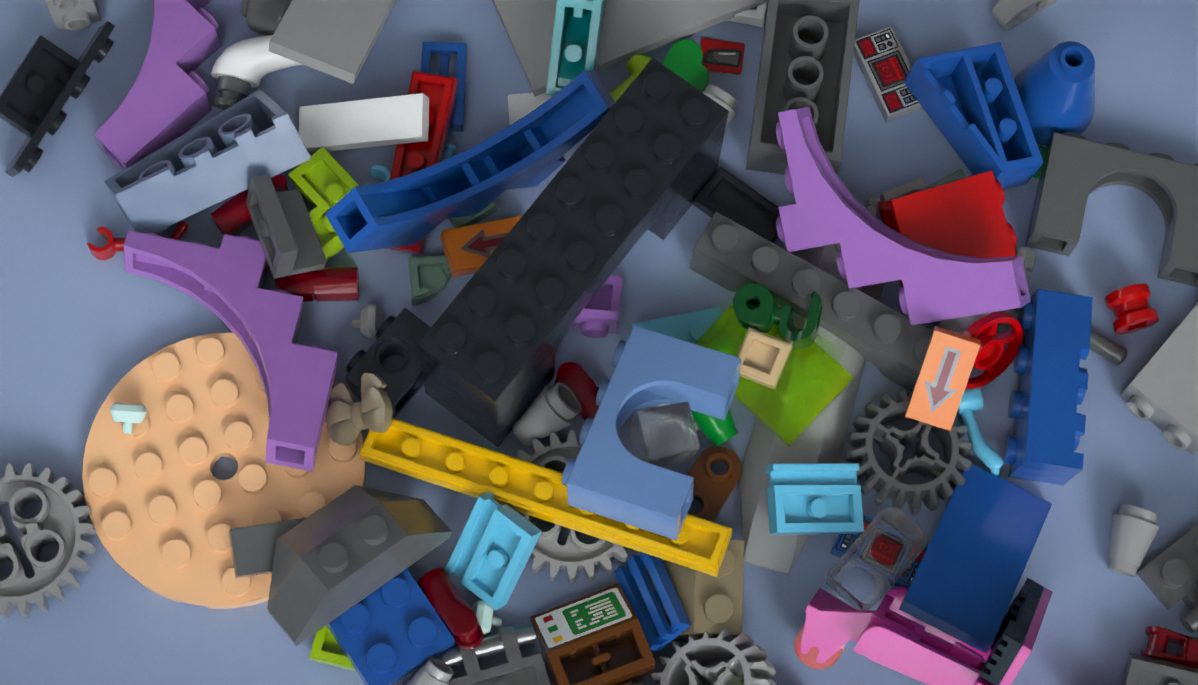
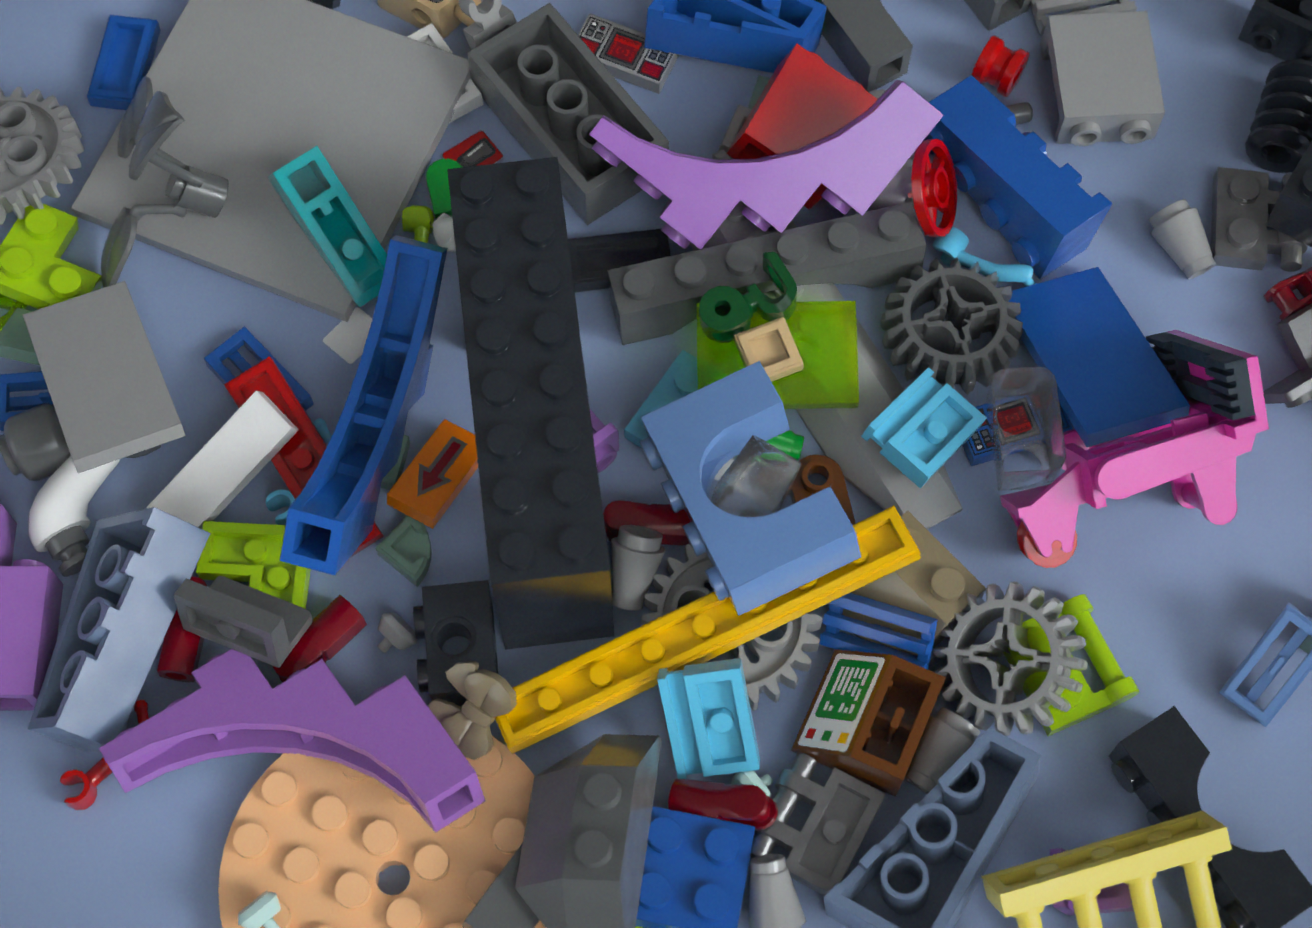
camera: 40 degrees left, 5 degrees down
(942, 378) = (930, 234): tile -> none

